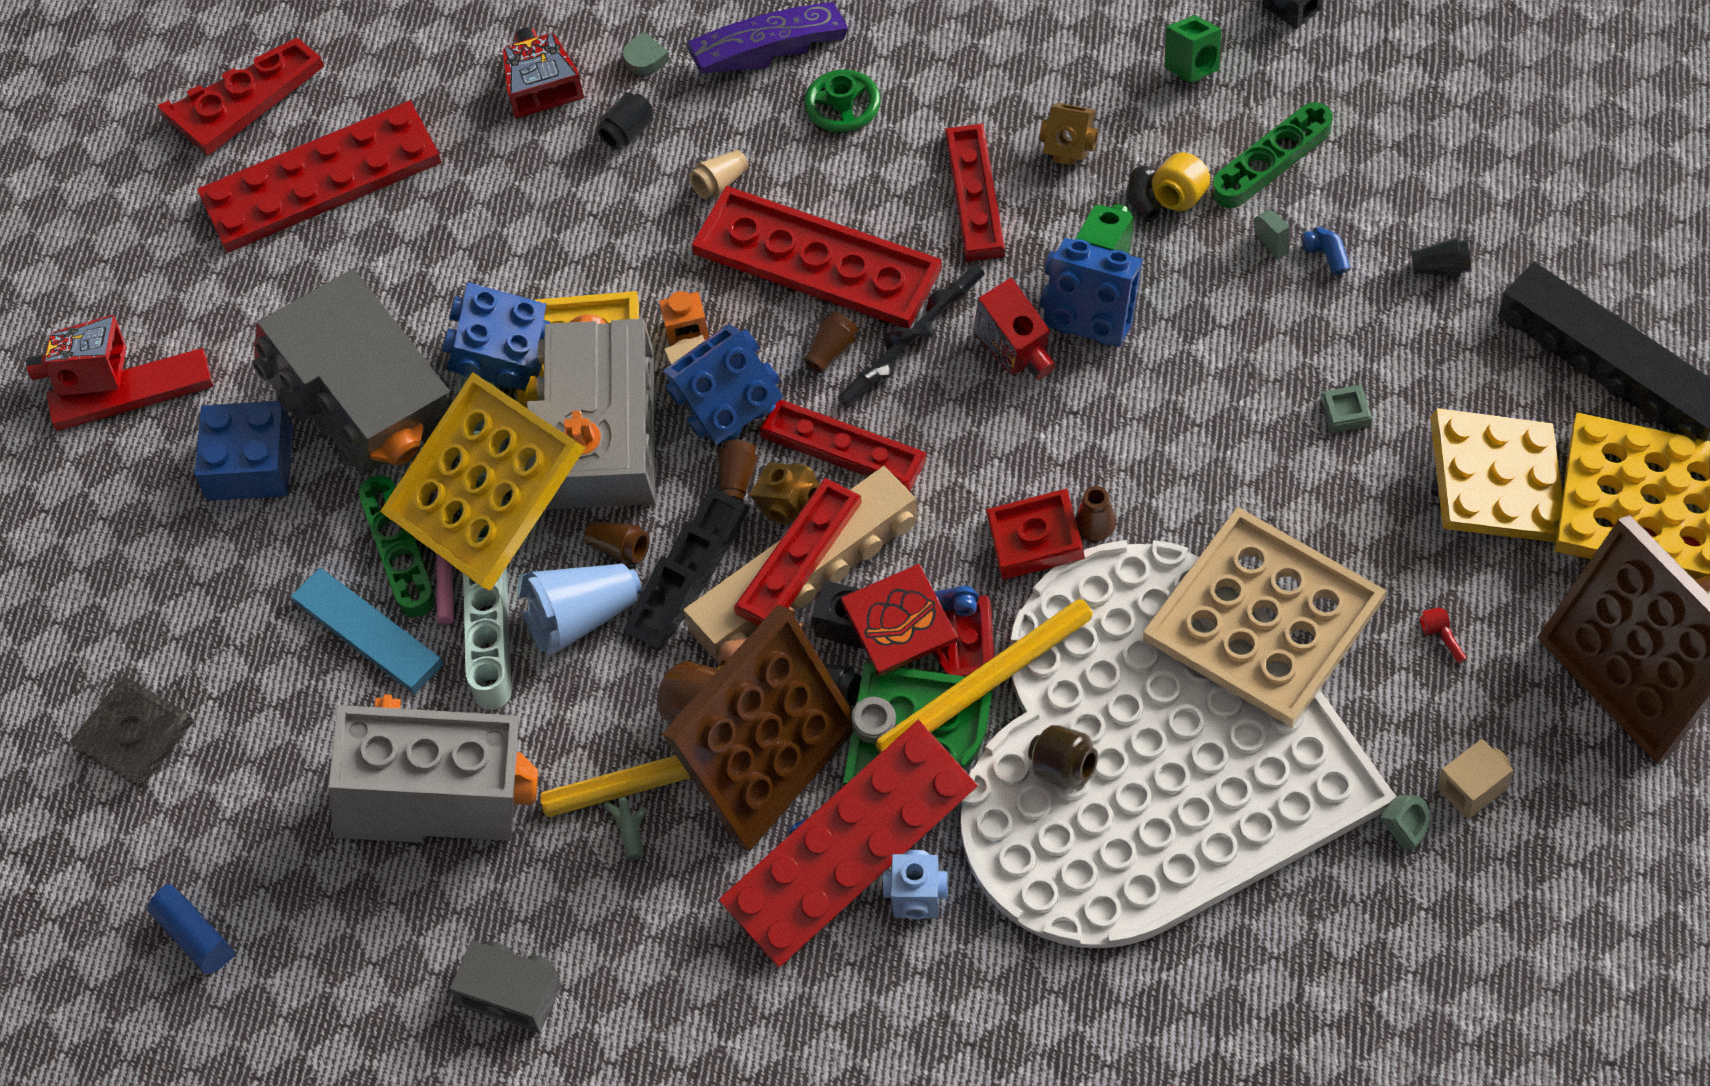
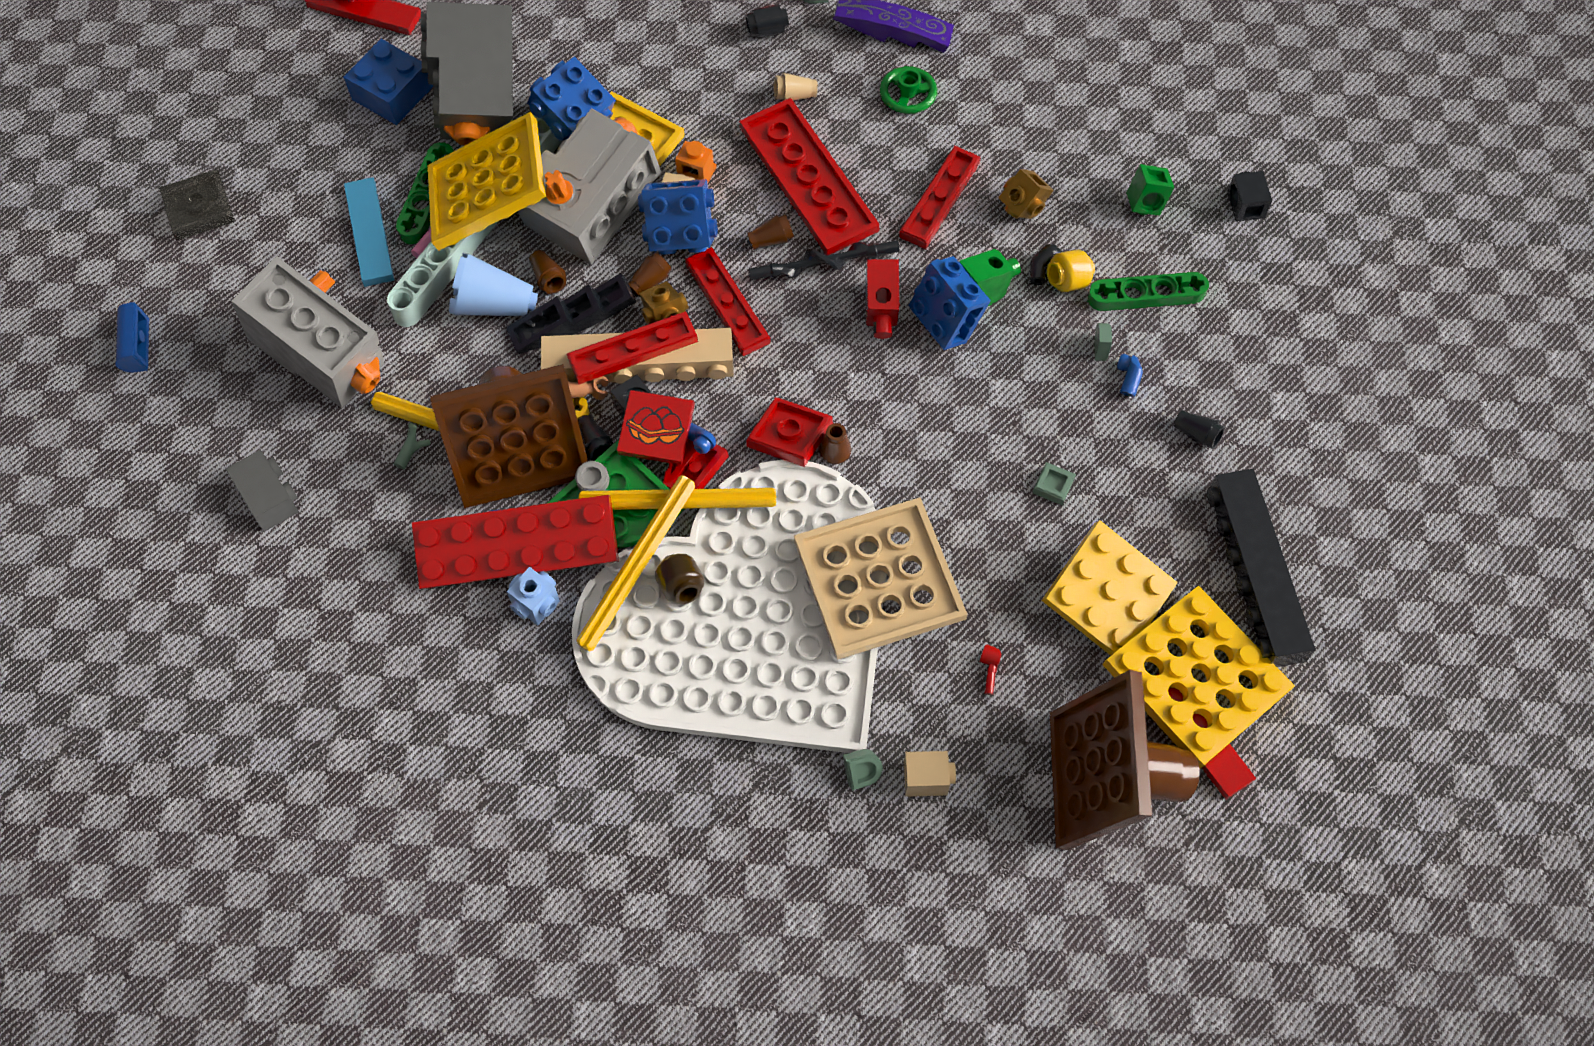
camera: 30 degrees right, 5 degrees up
(1004, 773) = (635, 563): none -> yellow axle

